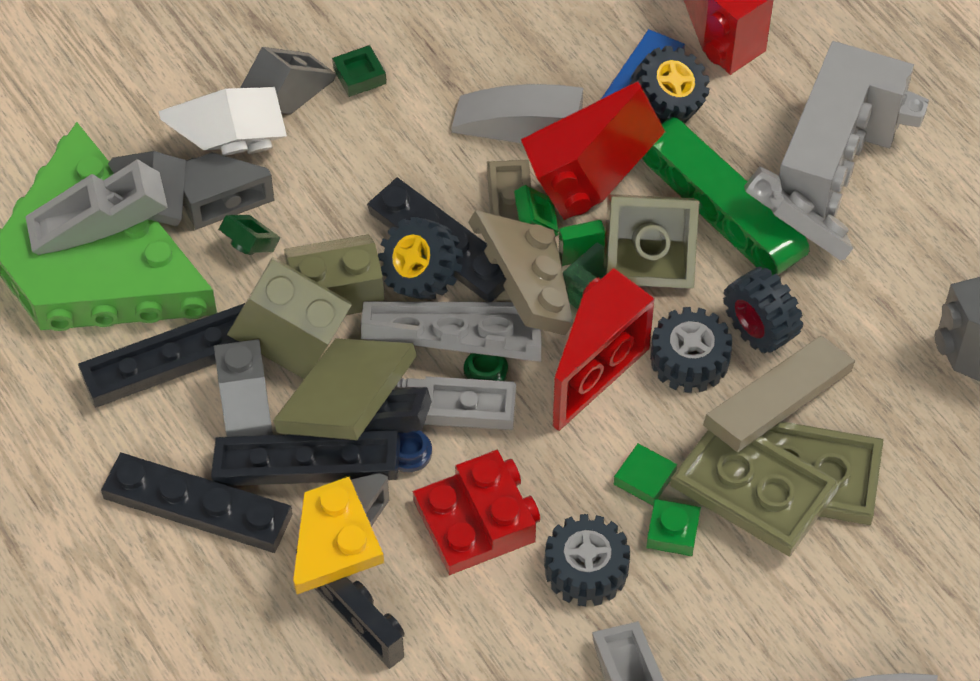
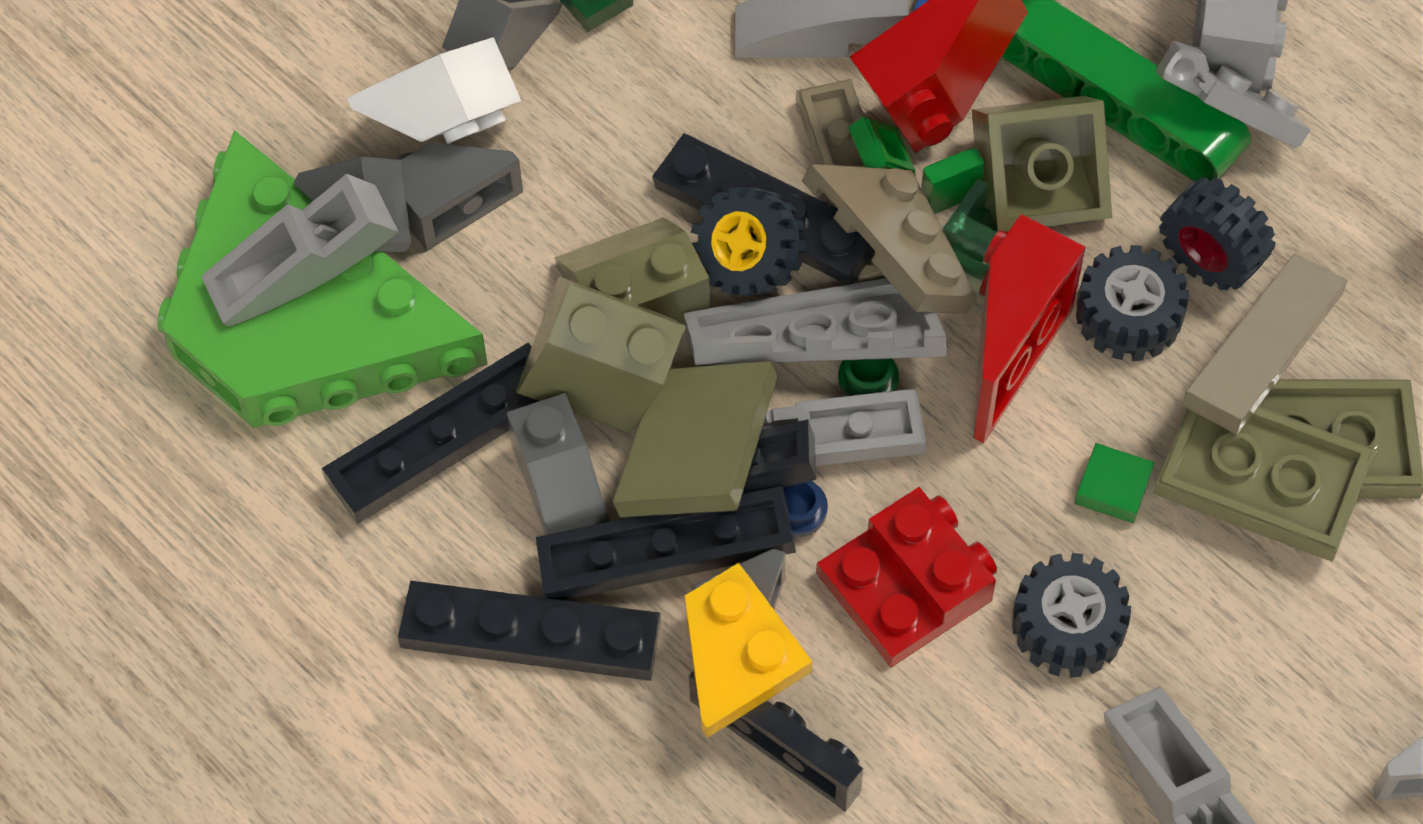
camera: 10 degrees left, 5 degrees up
(248, 234) = (505, 246): dark green plate -> none
(673, 527) = (1169, 549): green plate -> none

